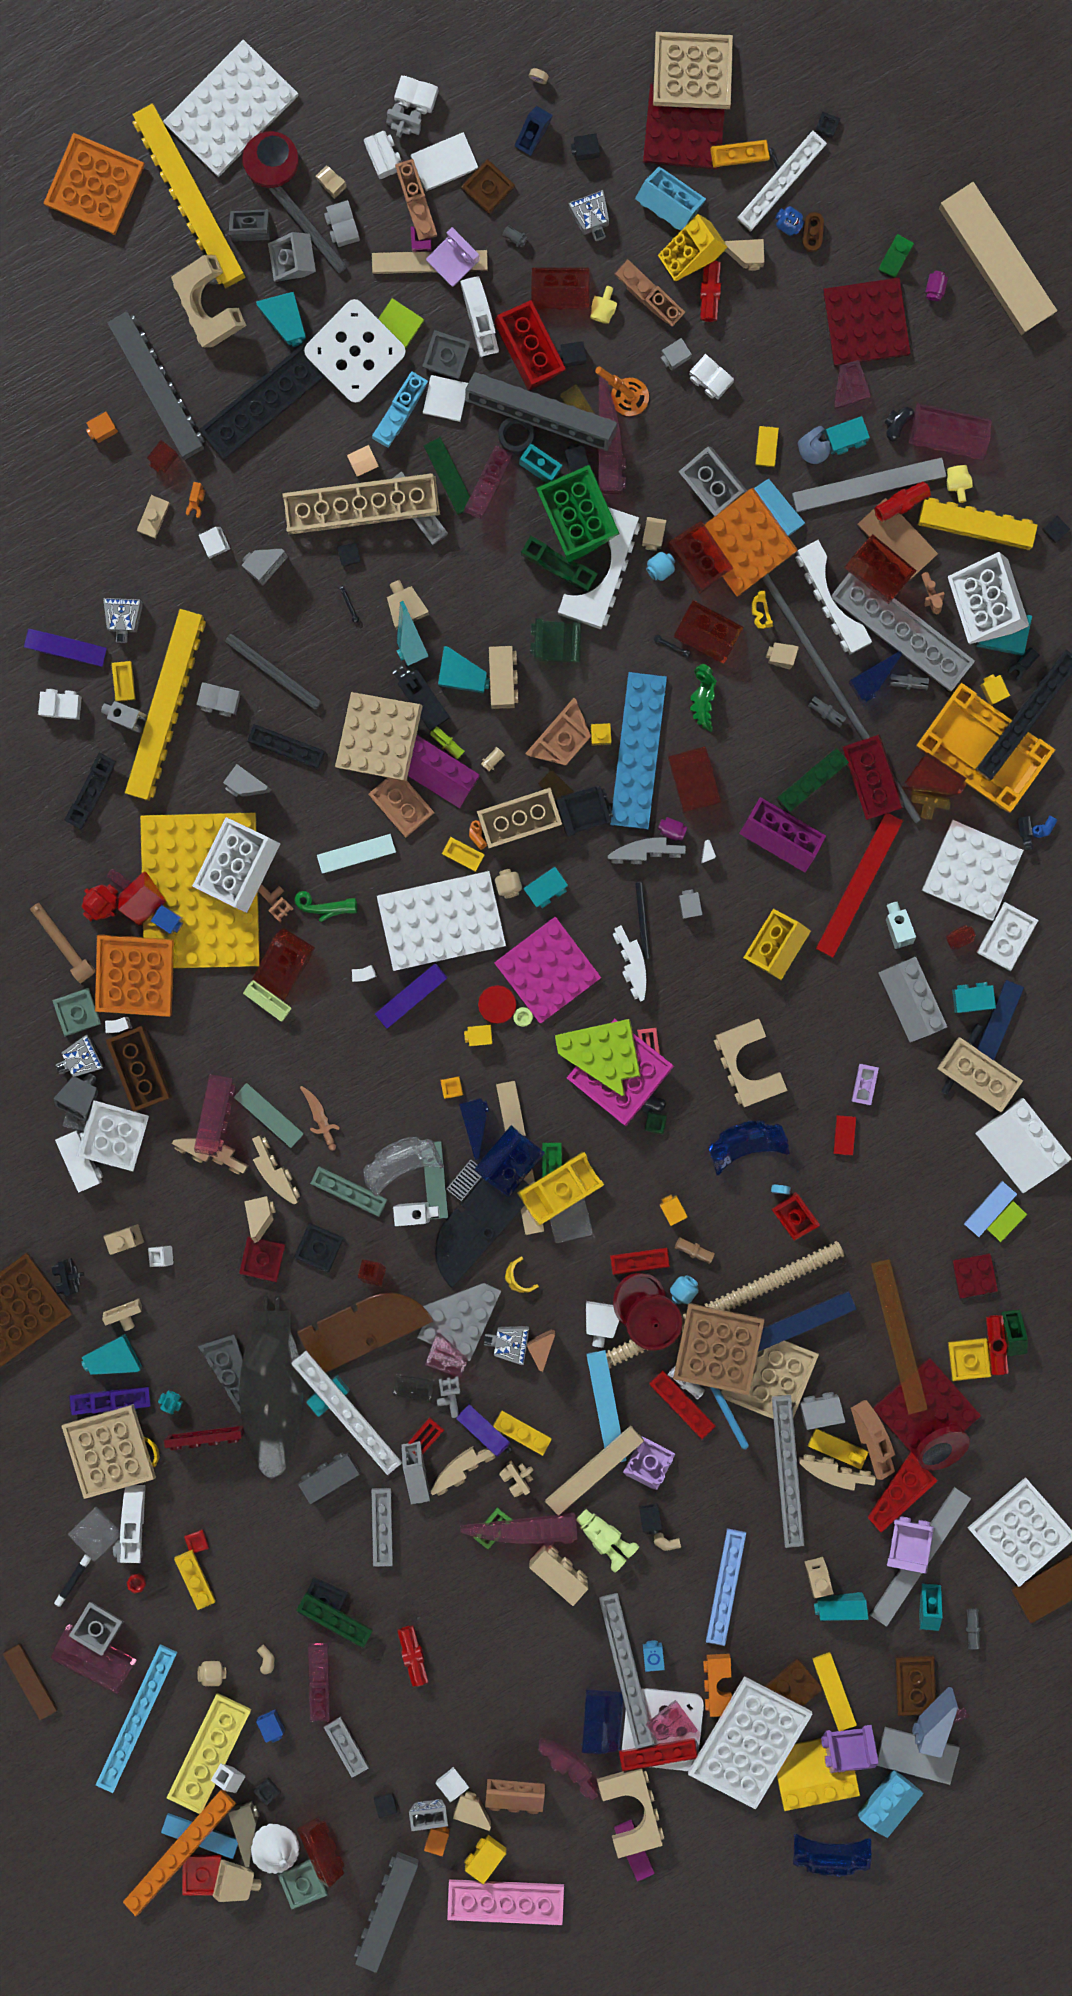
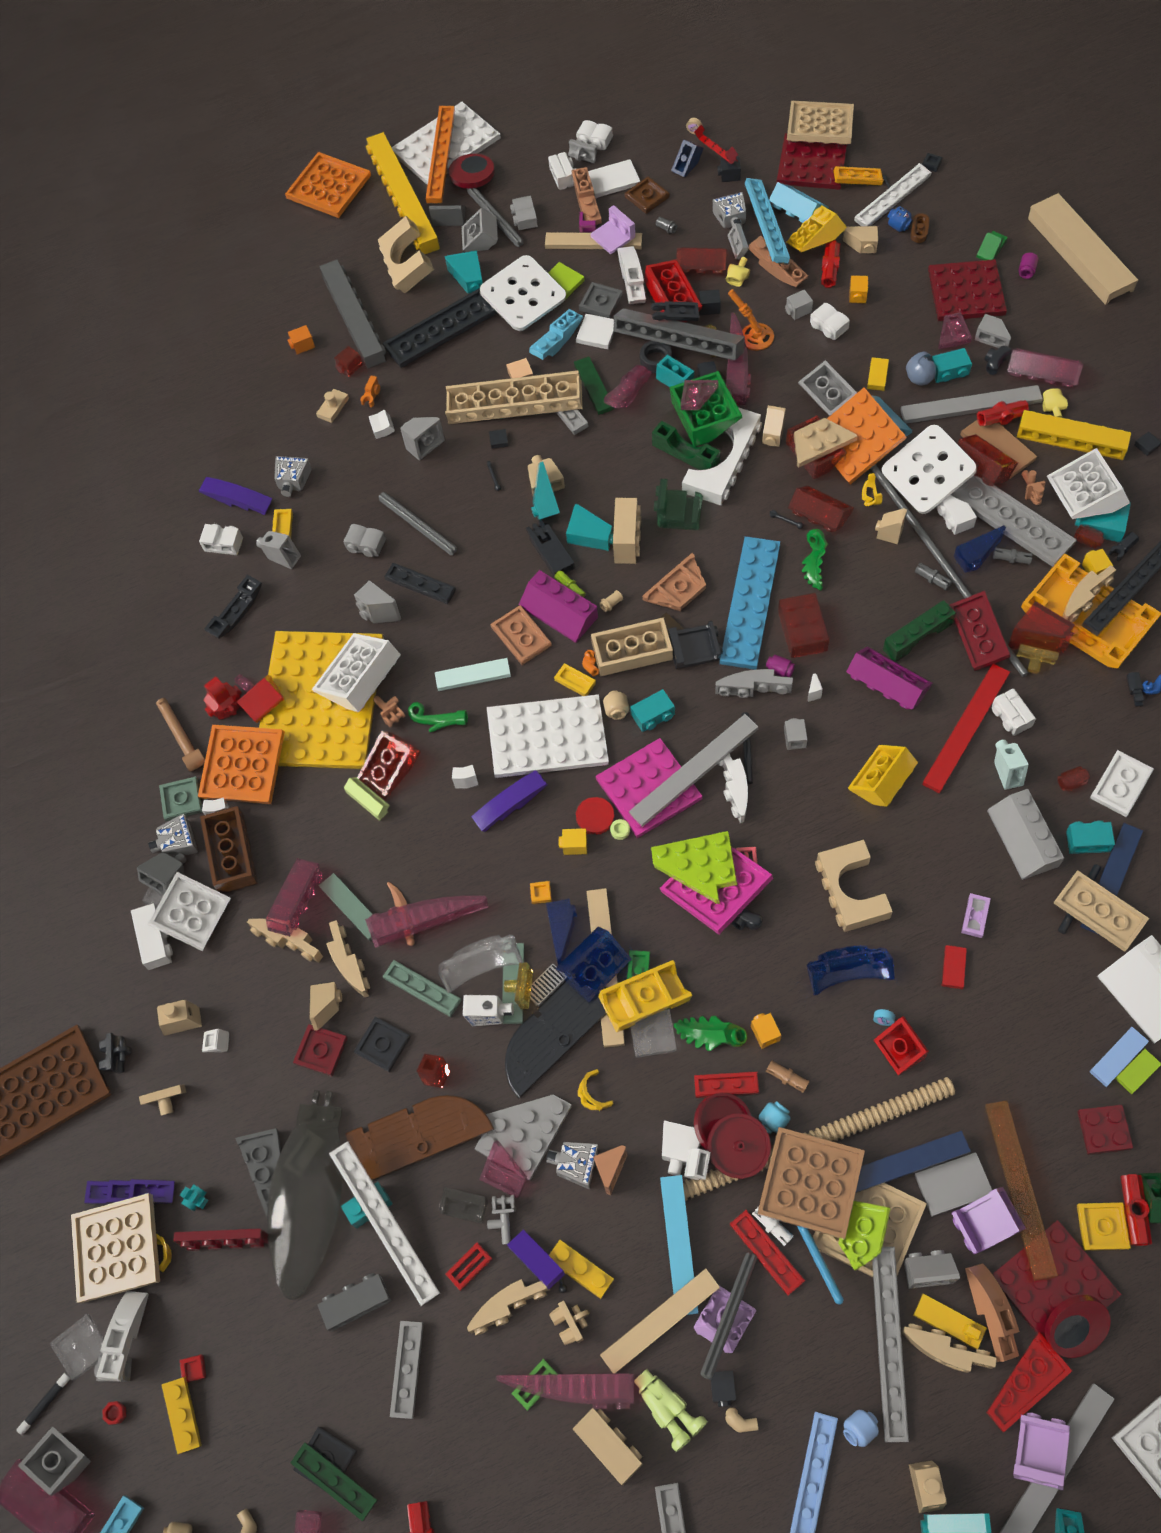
camera: 15 degrees right, 25 degrees down
(112, 1358) = (142, 1143): teal slope -> none
(164, 705) = (314, 544): yellow brick -> none
(167, 920) = (281, 714): blue brick -> none
(229, 137) = (440, 154): none -> orange plate
(331, 181) = (517, 184): tan leg -> none
(335, 1126) = (419, 916): none -> clear pink slope
(378, 736) = (506, 573): tan plate -> none
(415, 1473) = (452, 1305): light grey slope -> none
(444, 1186) = (521, 986): none -> clear yellow tile
(539, 385) = (675, 311): none -> black hinge
(568, 504) = (697, 393): none -> clear pink wing
(587, 143) = (731, 154): none -> red piece
(591, 956) = (693, 770): none -> light grey tile
(600, 734) = (715, 583): yellow brick -> none
(601, 261) = (738, 241): none -> light grey plate
(618, 1342) = (697, 1164): none -> white piece
(623, 1214) = (711, 1032): none -> green plant
(634, 234) = (767, 221): none -> medium azure plate
(653, 1462) = (728, 1316): none -> dark grey axle
(655, 1123) = (750, 941): dark green tile -> none
(660, 566) = (778, 454): medium azure head -> none
(704, 556) = (820, 439): none -> tan wing
(743, 329) = (858, 289): none -> light orange brick
(765, 1539) = (861, 1428): none -> light blue head
(766, 1387) = (865, 1233): none -> lime tile
(819, 606) = (926, 487): none -> white piece
(843, 1335) = (953, 1184): none -> light grey tile
(870, 1366) = (988, 1221): none -> panel
(894, 385) = (993, 332): none -> light grey slope
(904, 867) = (1013, 712): none -> white brick
(972, 870) = (1082, 721): white plate -> none
(975, 738) = (1085, 592): none -> tan slope
(988, 656) = (1089, 536): none -> clear red brick

